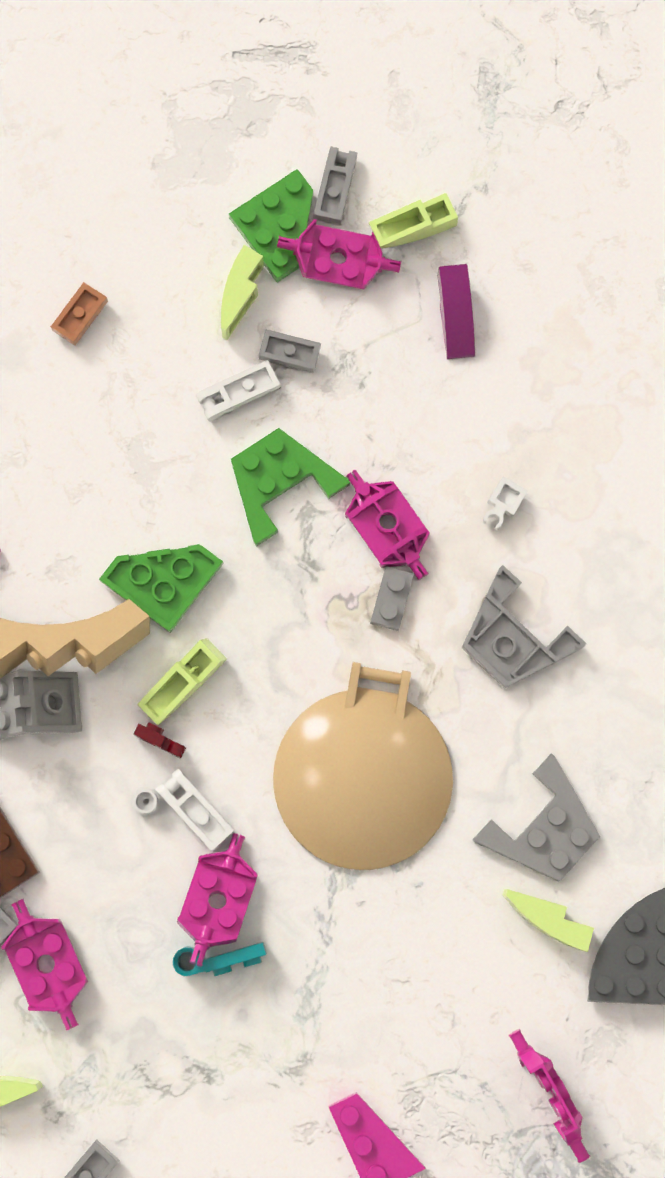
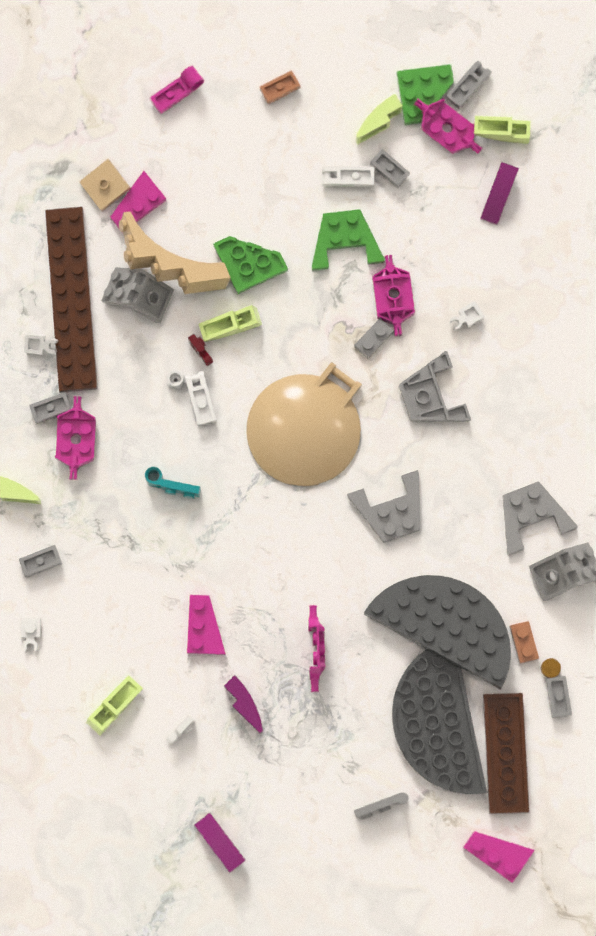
camera: 30 degrees right, 0 degrees up
(224, 875) = (193, 438): dark pink plate -> none
(550, 920) = (366, 558): yellowish green slope -> none

